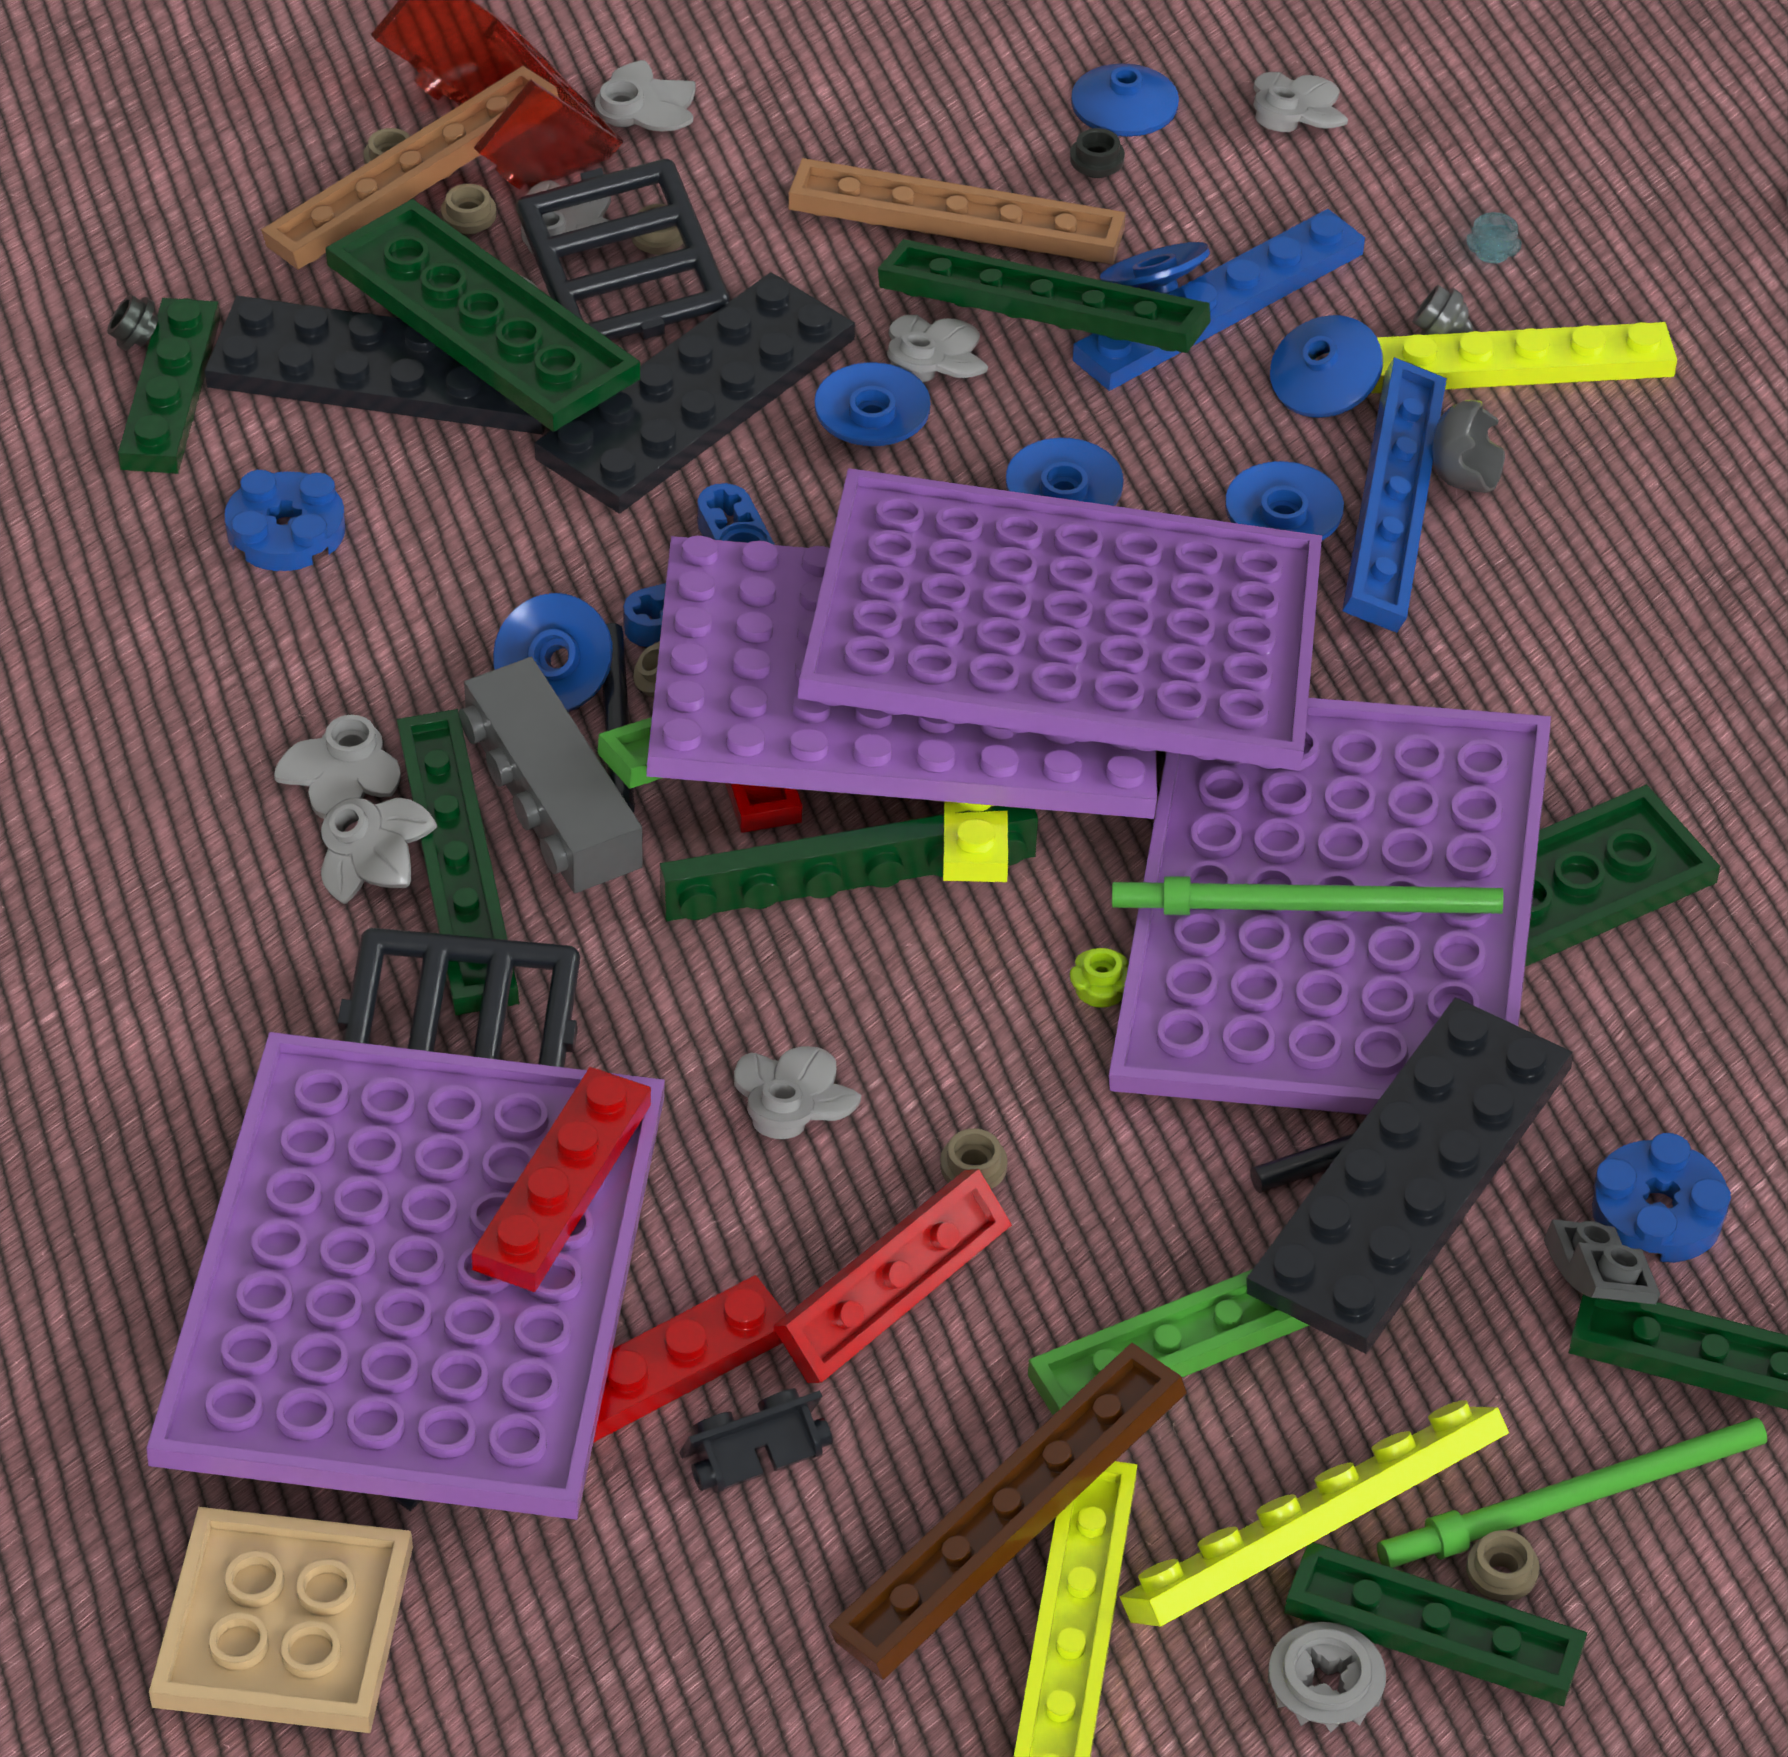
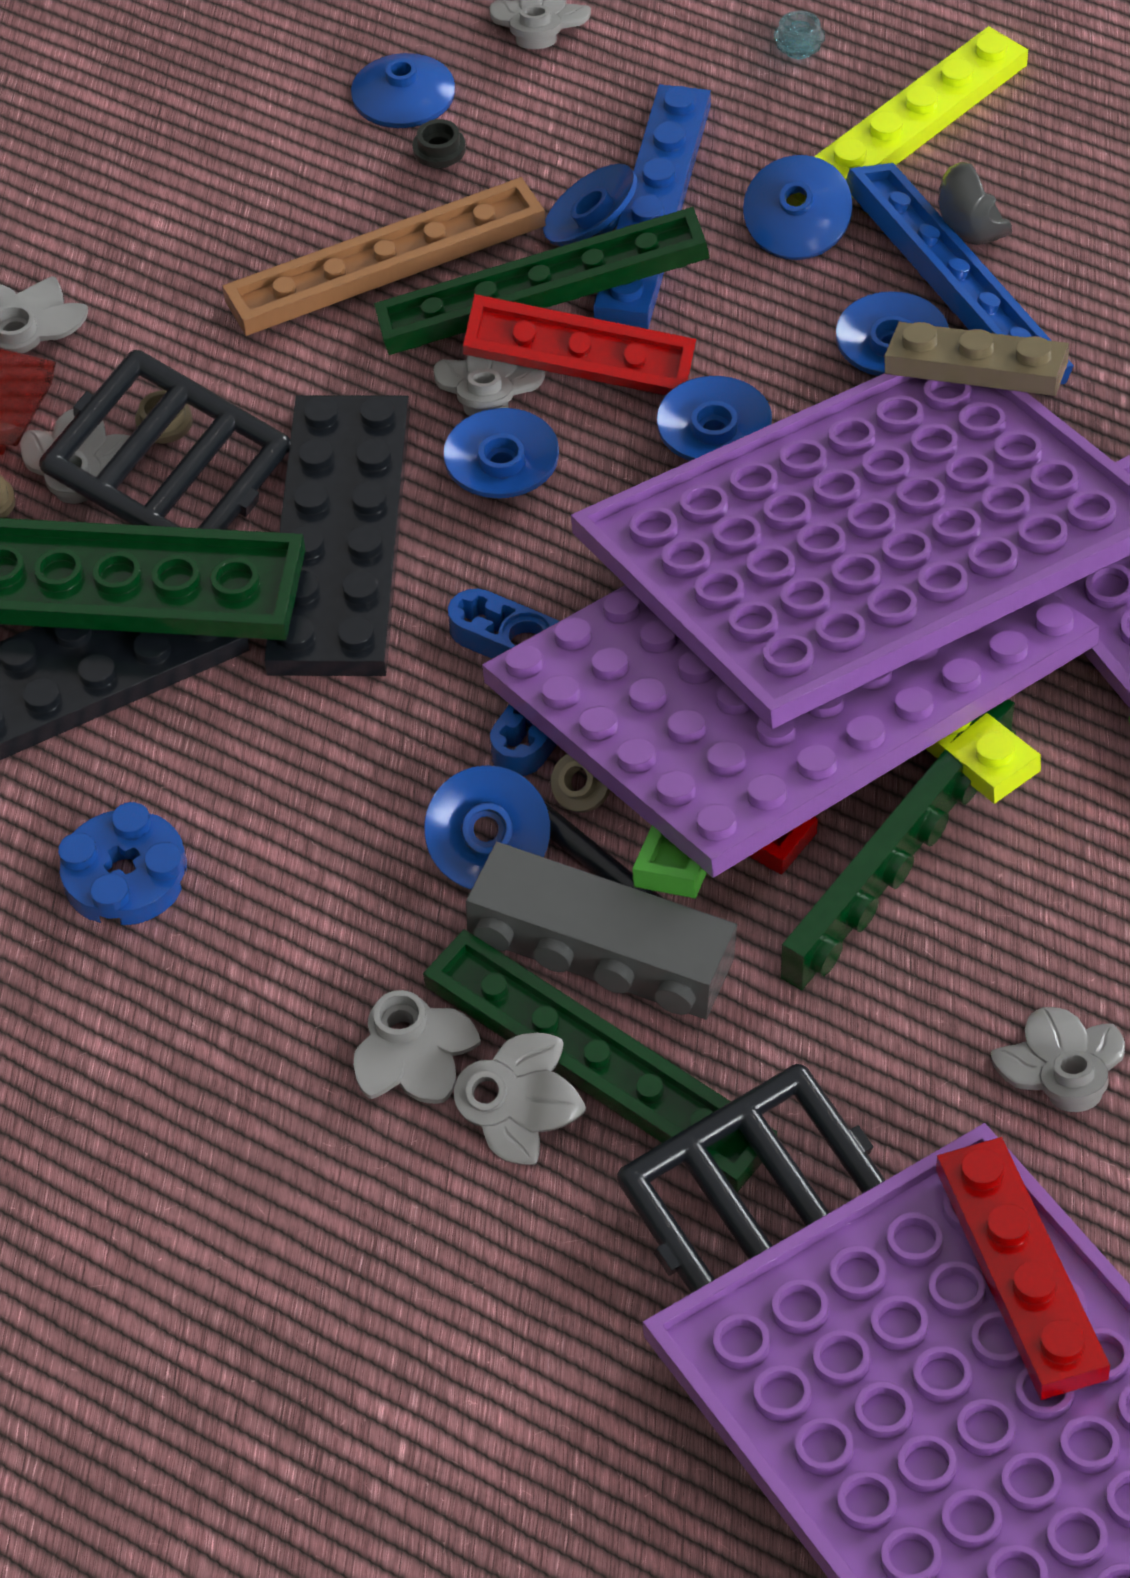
camera: 35 degrees left, 5 degrees up
(1018, 360) = (577, 345): none -> red plate
(1306, 552) = (977, 358): none -> dark tan plate
(1443, 313) = (830, 115): dark grey plate -> none

